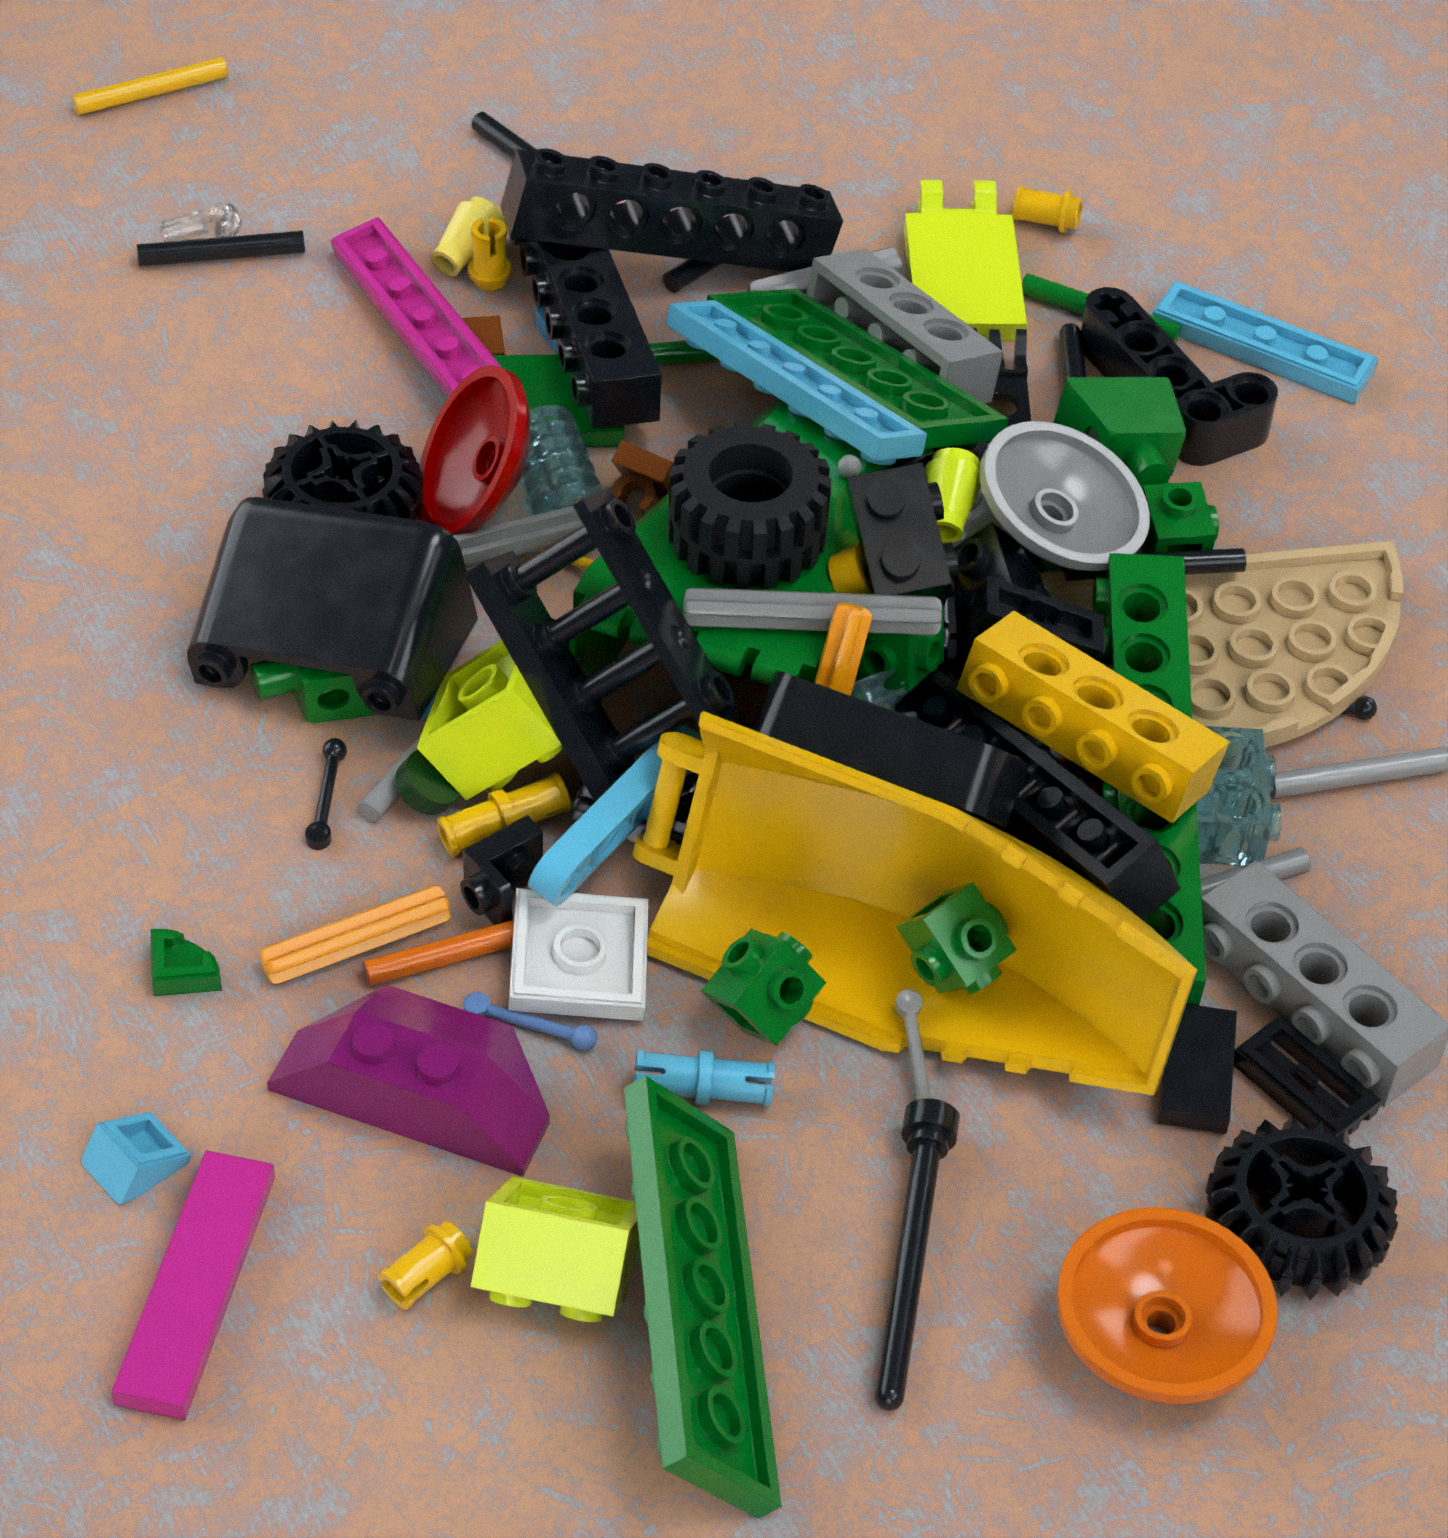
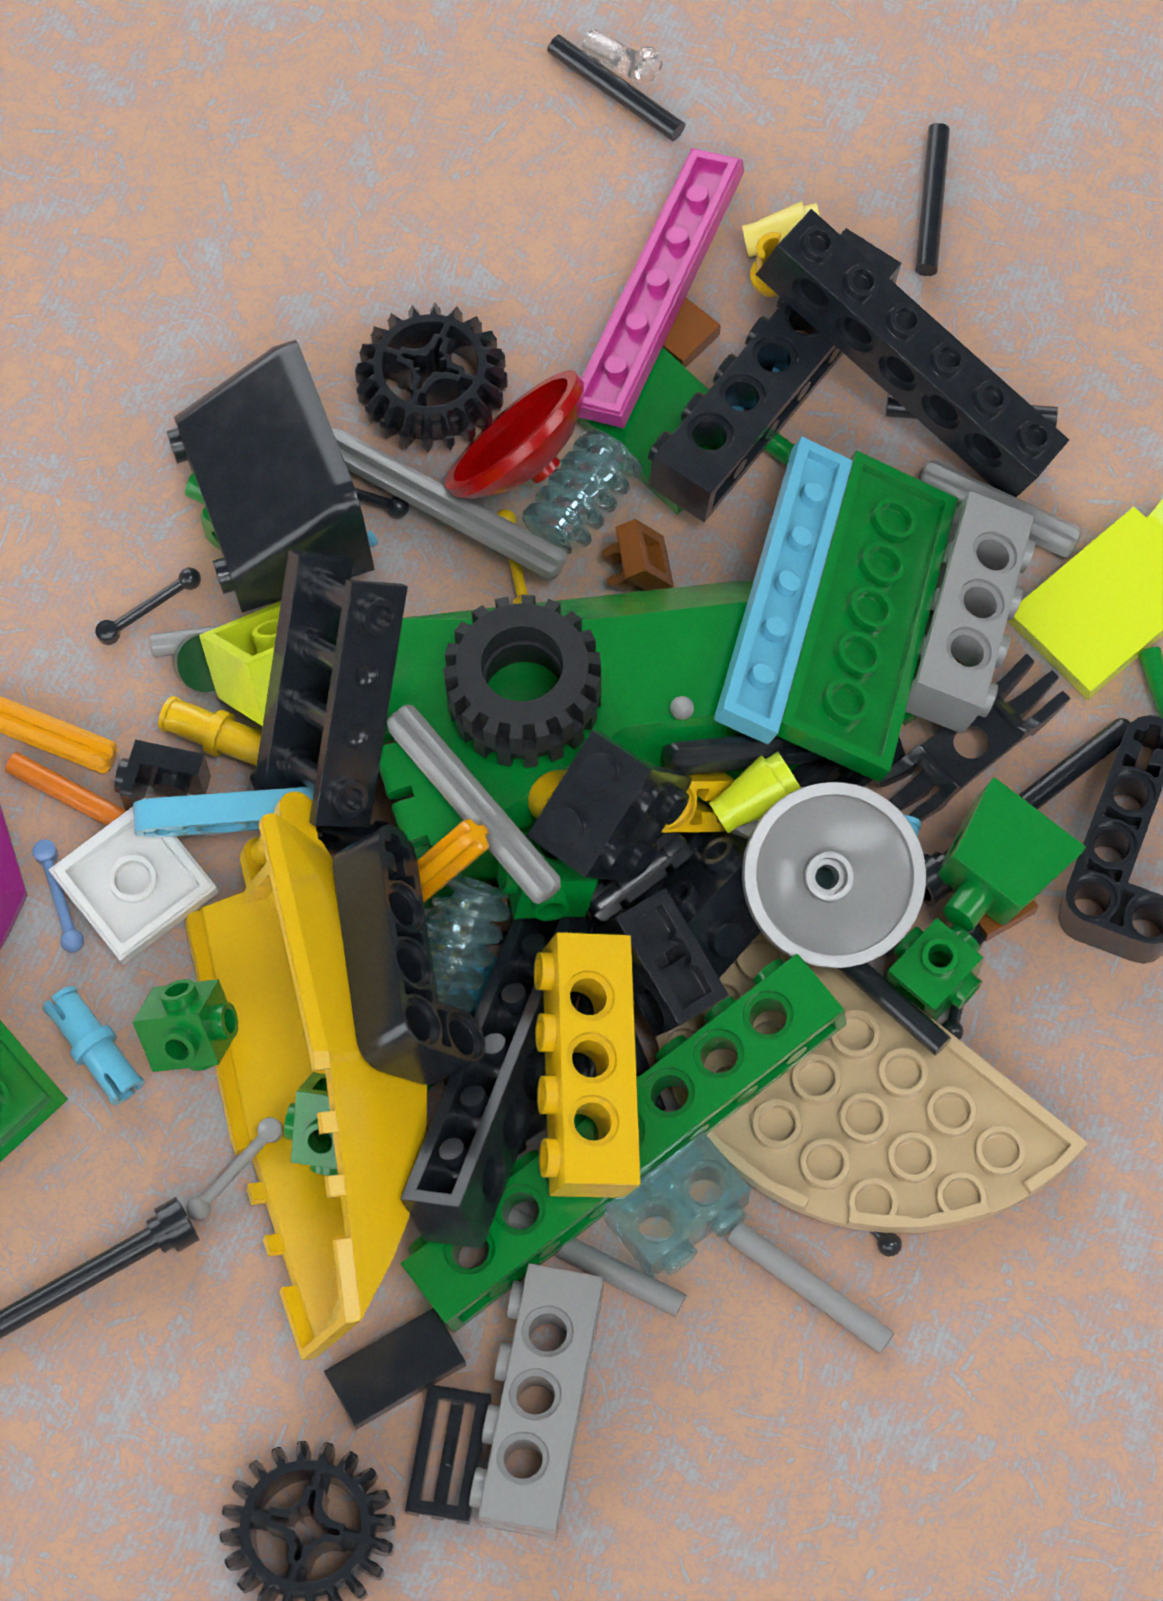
camera: 55 degrees right, 20 degrees up
(1170, 1274) = (87, 1471): orange dish -> none

